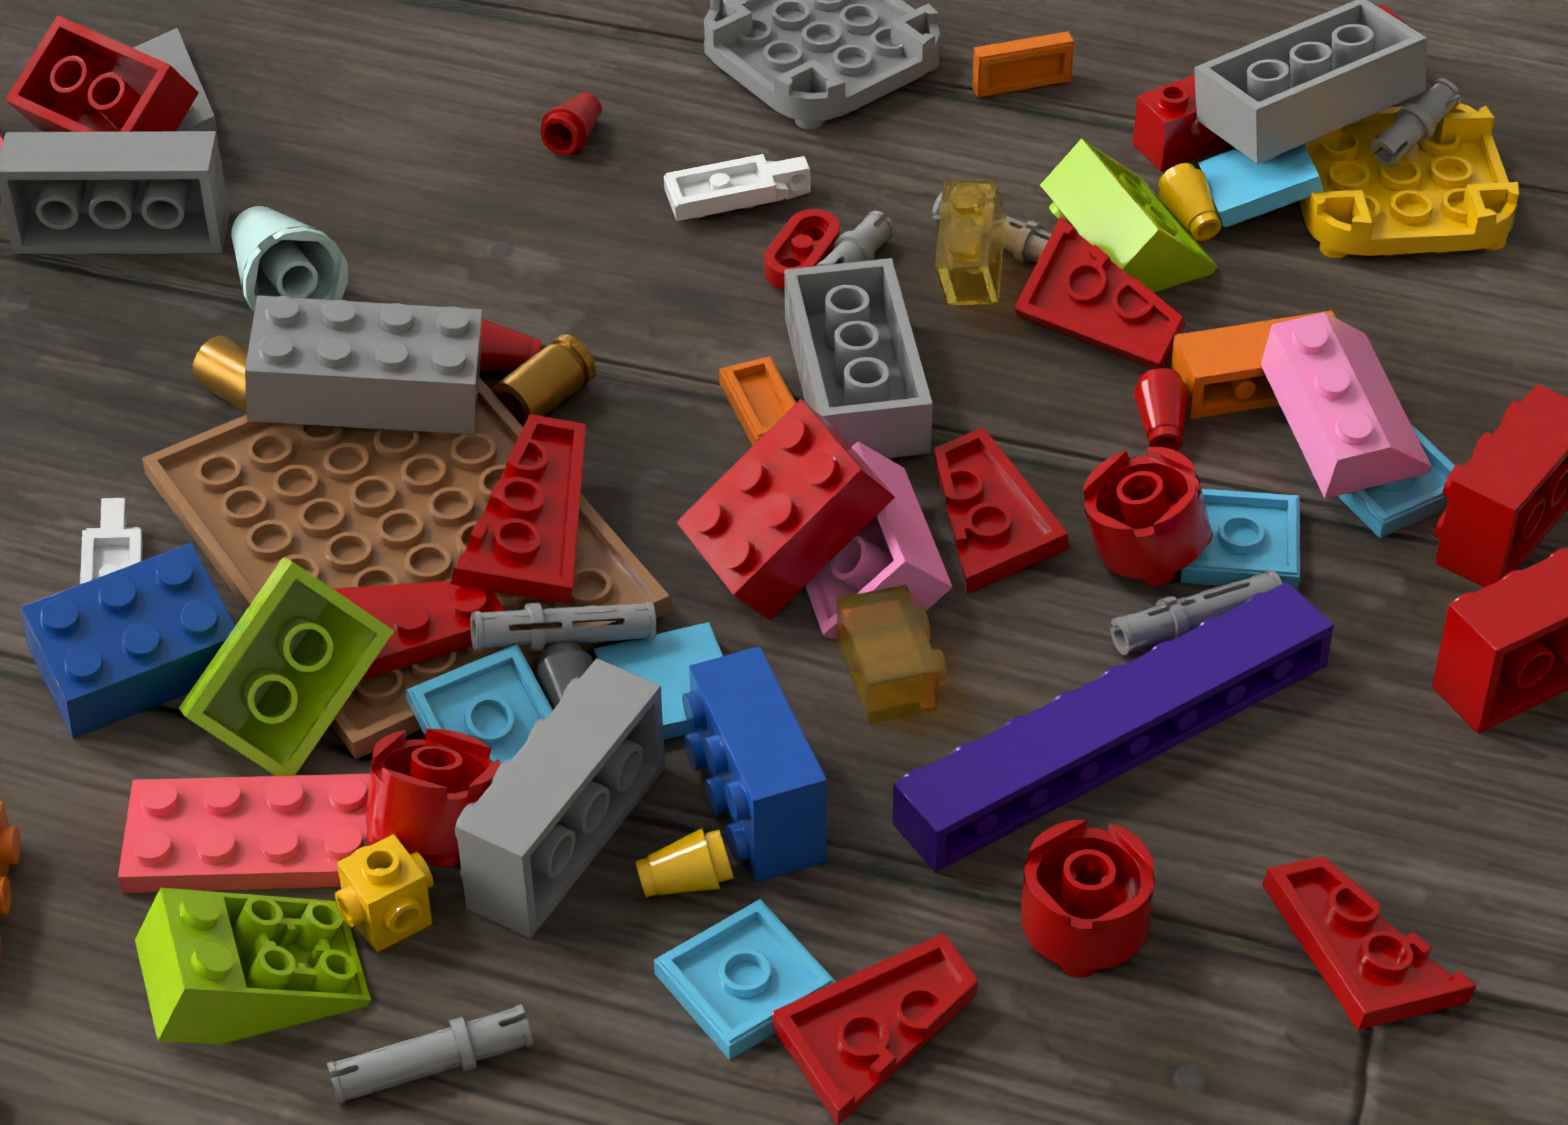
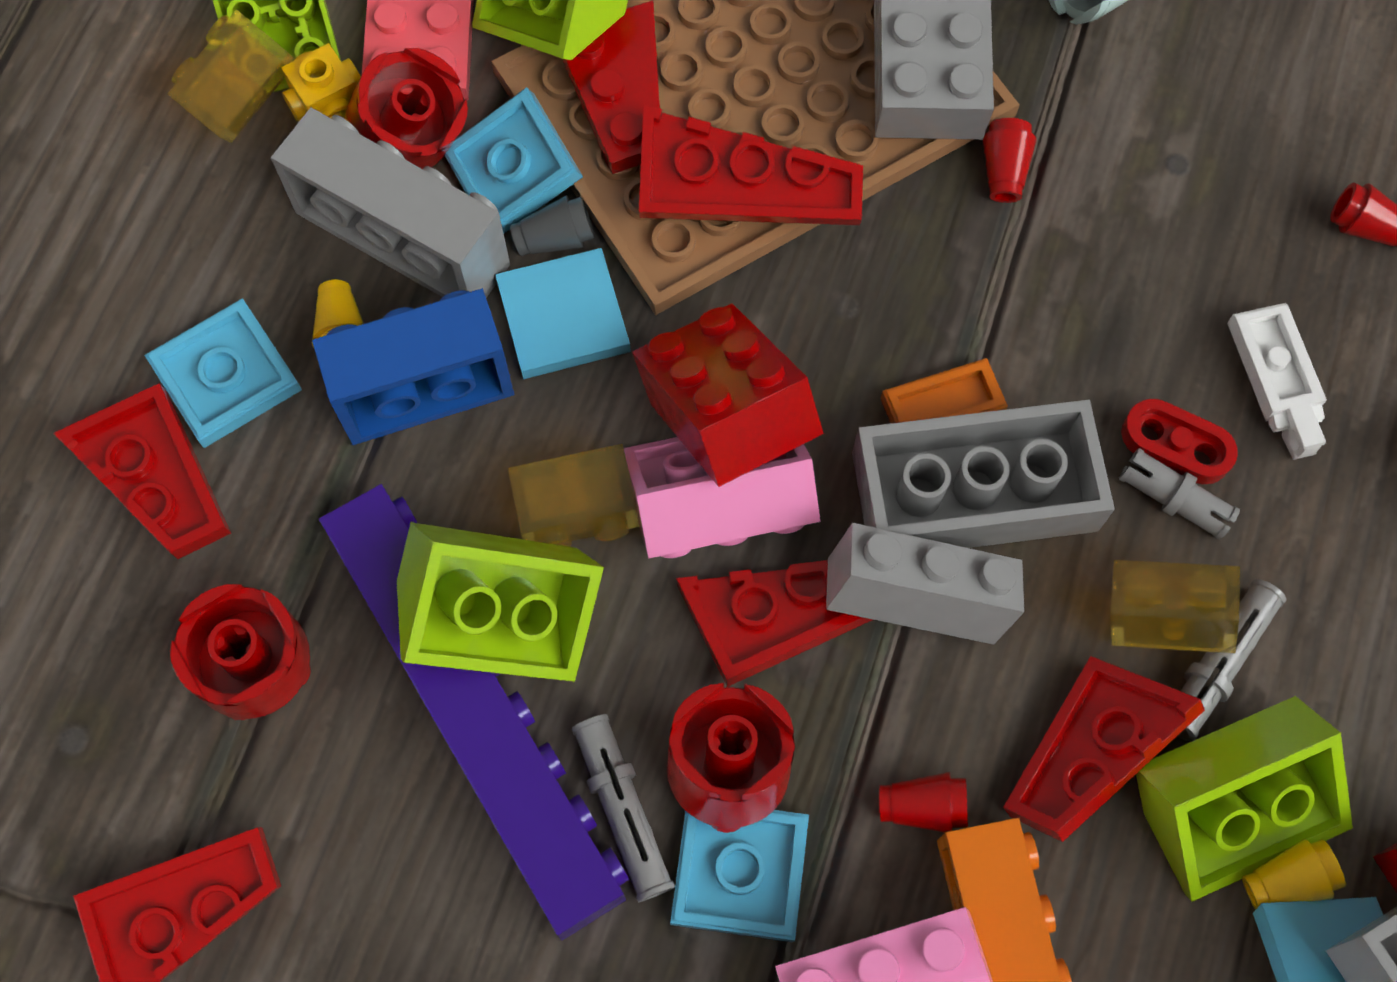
camera: 90 degrees right, 25 degrees up
(368, 964) = (230, 75): none -> clear yellow brick
(430, 1054) = (172, 153): light grey pin -> none
(492, 628) = (597, 187): light grey pin -> none
(546, 378) = (956, 197): pearl gold piece -> none
(967, 388) = (924, 584): none -> light grey brick
(1015, 672) = (494, 603): none -> lime slope

